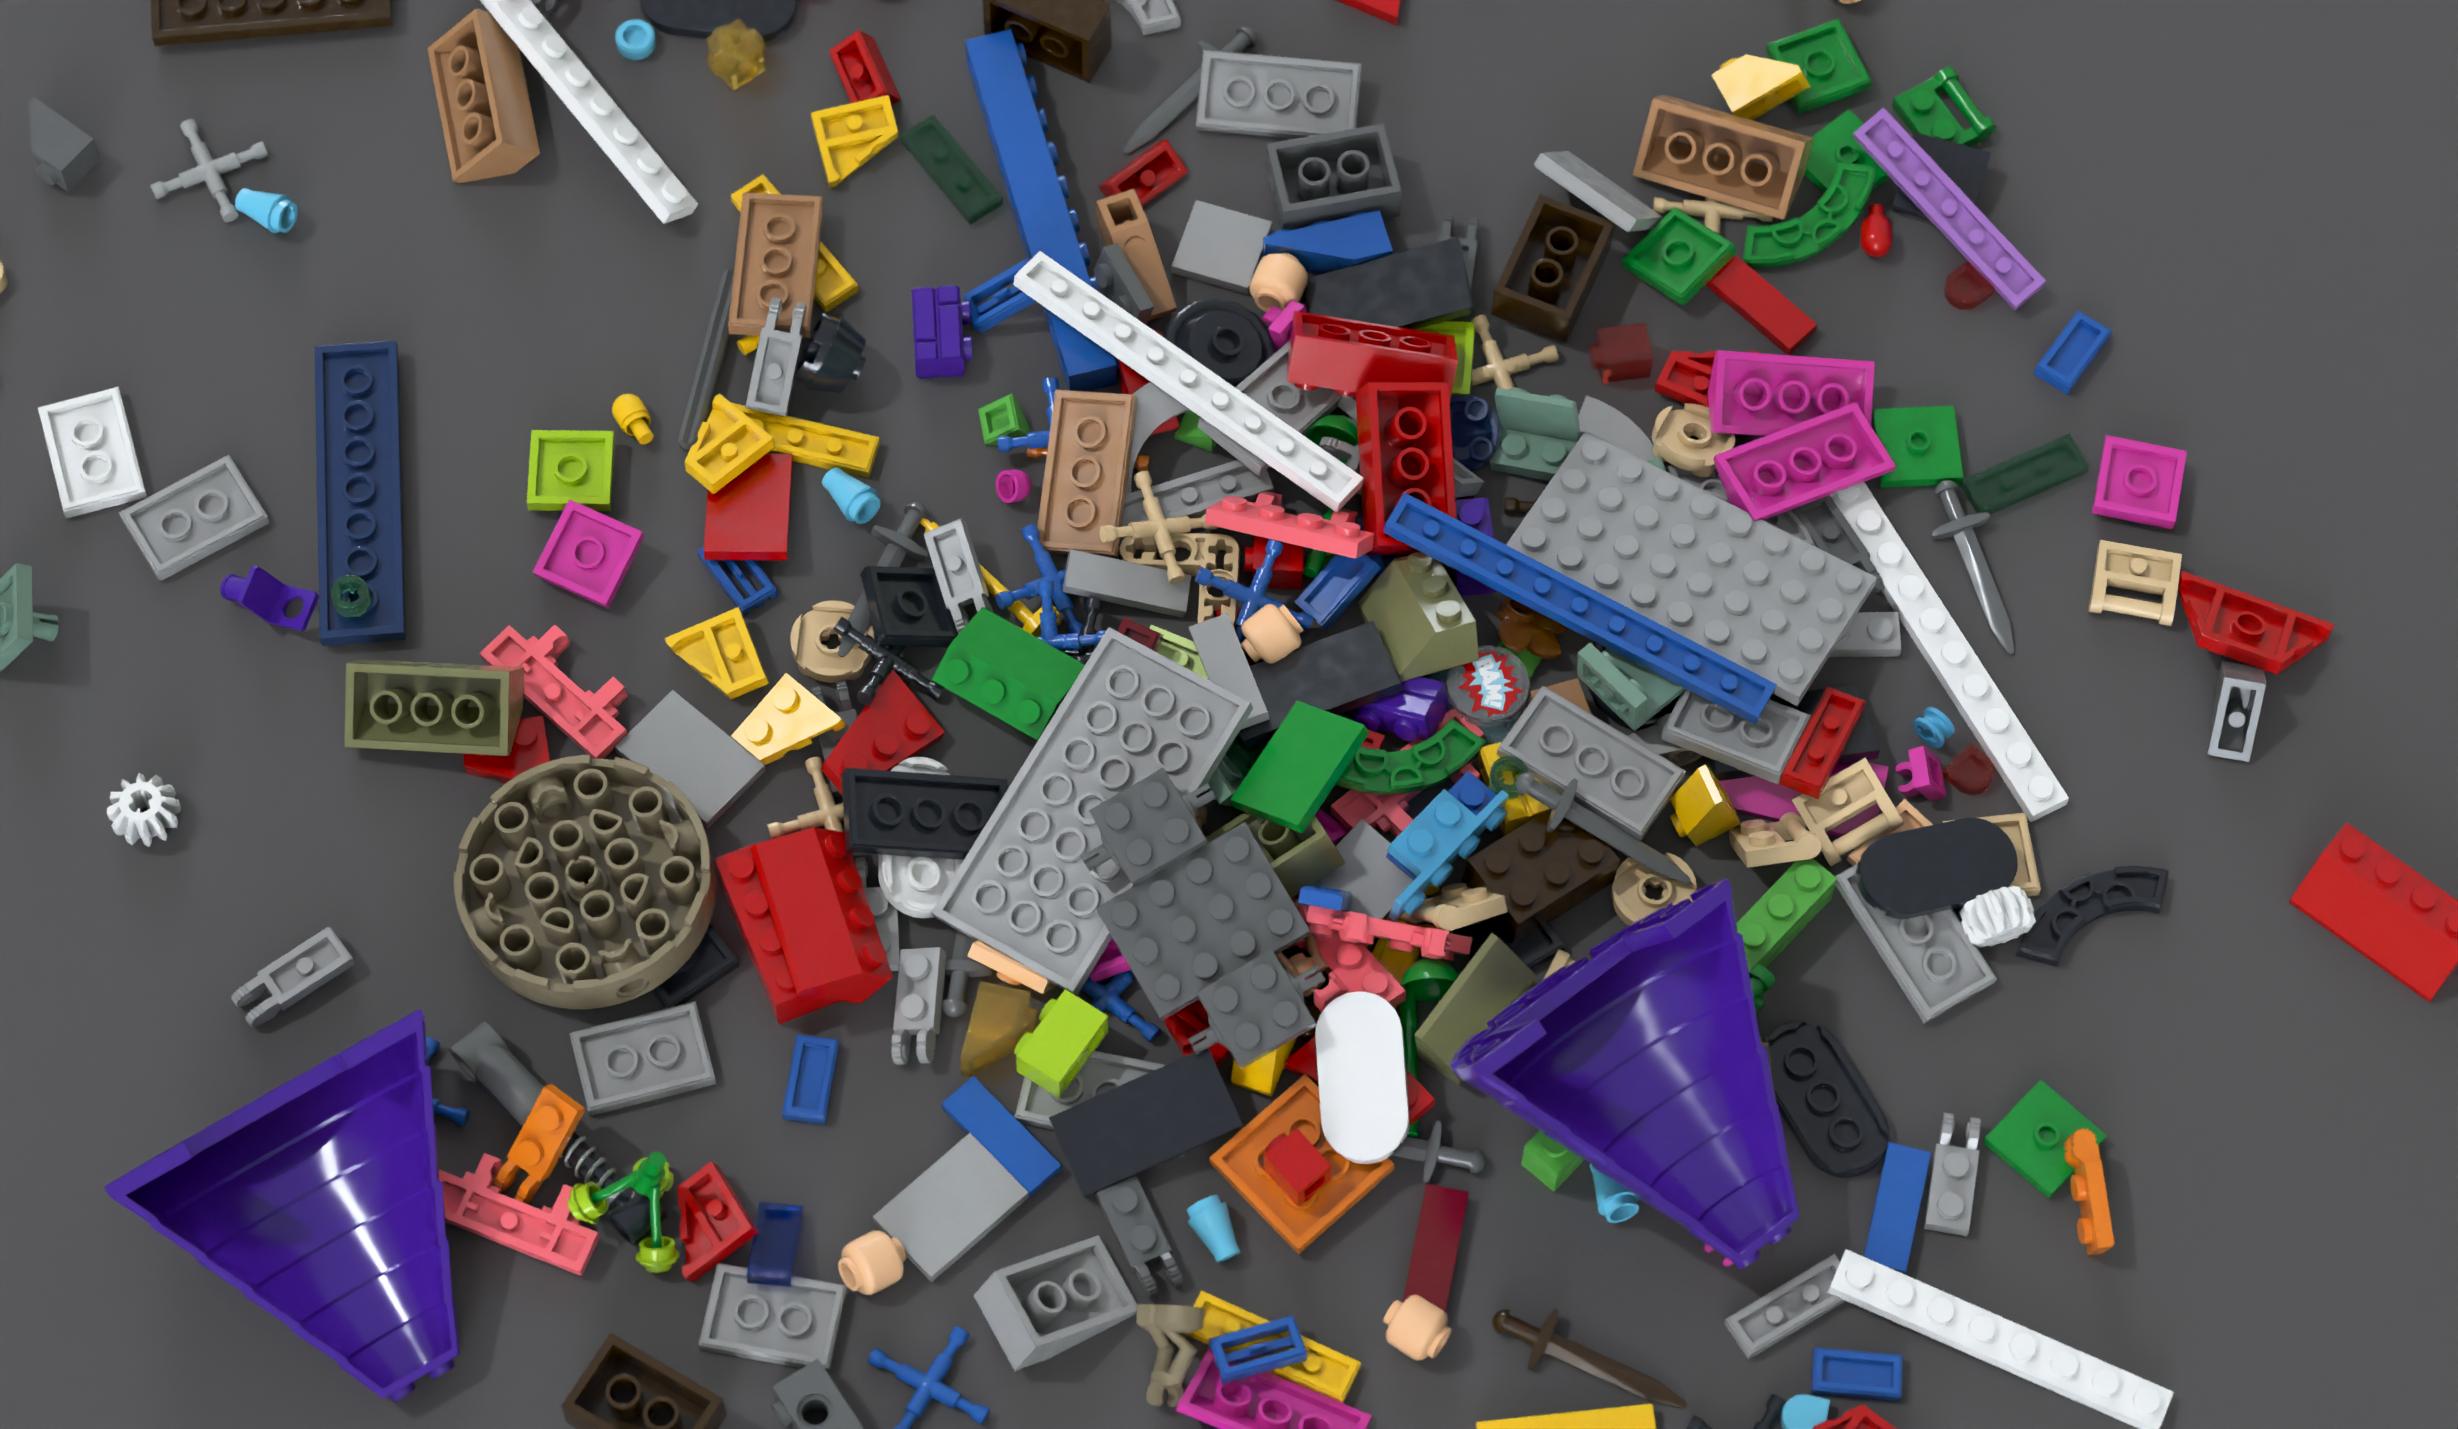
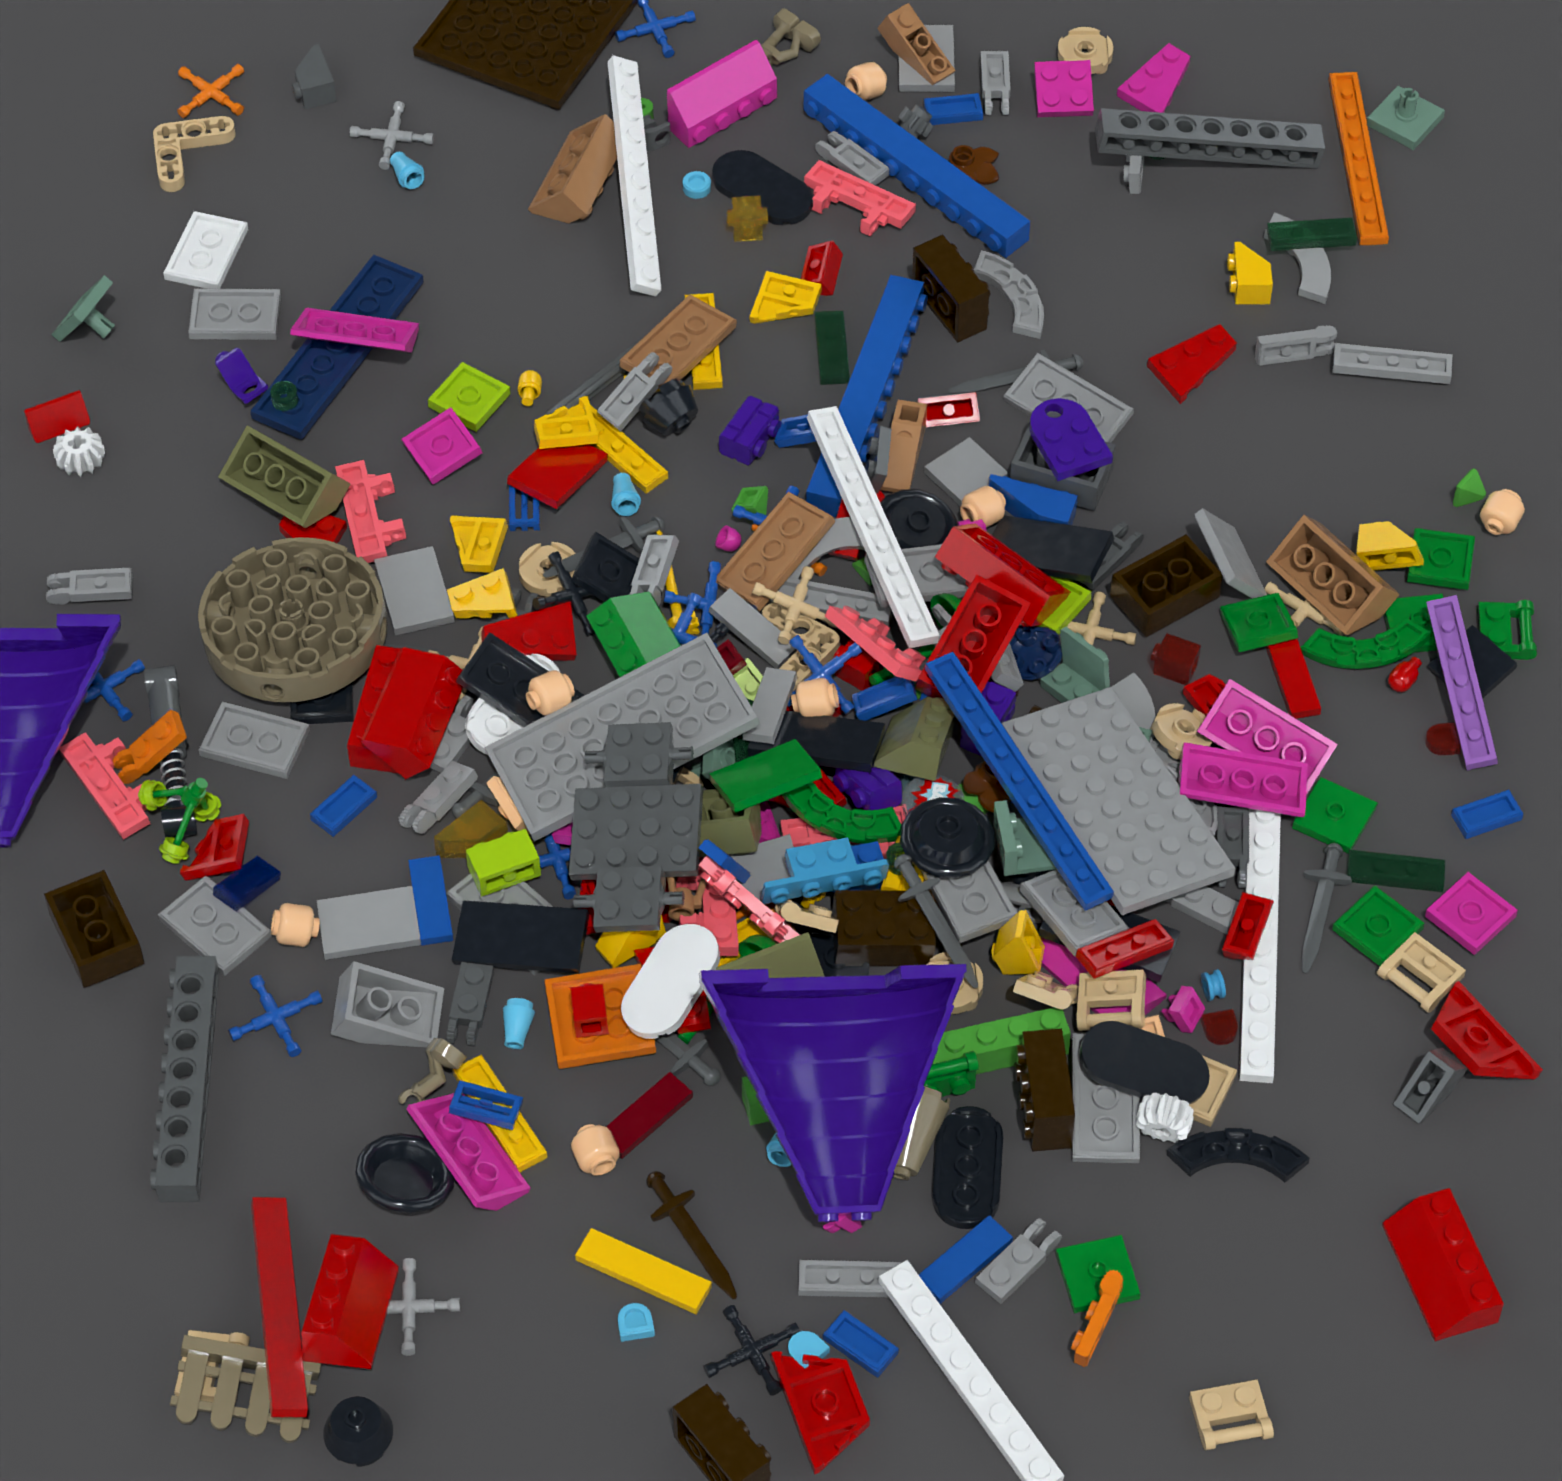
camera: 35 degrees right, 10 degrees down
(79, 779) = (56, 415): none -> red slope
(376, 460) = (356, 330): none -> dark pink slope
(968, 802) = (550, 692): none -> light nougat head
(1329, 146) = (1069, 441): none -> dark purple plate
(1548, 723) = (947, 837): none -> black piece
(1855, 960) = (1045, 1090): none -> dark brown brick
(1927, 638) = (1247, 927): none -> red slope
(2054, 554) = (1377, 925): none -> green plate
(2280, 1205) = (1230, 1405): none -> tan plate

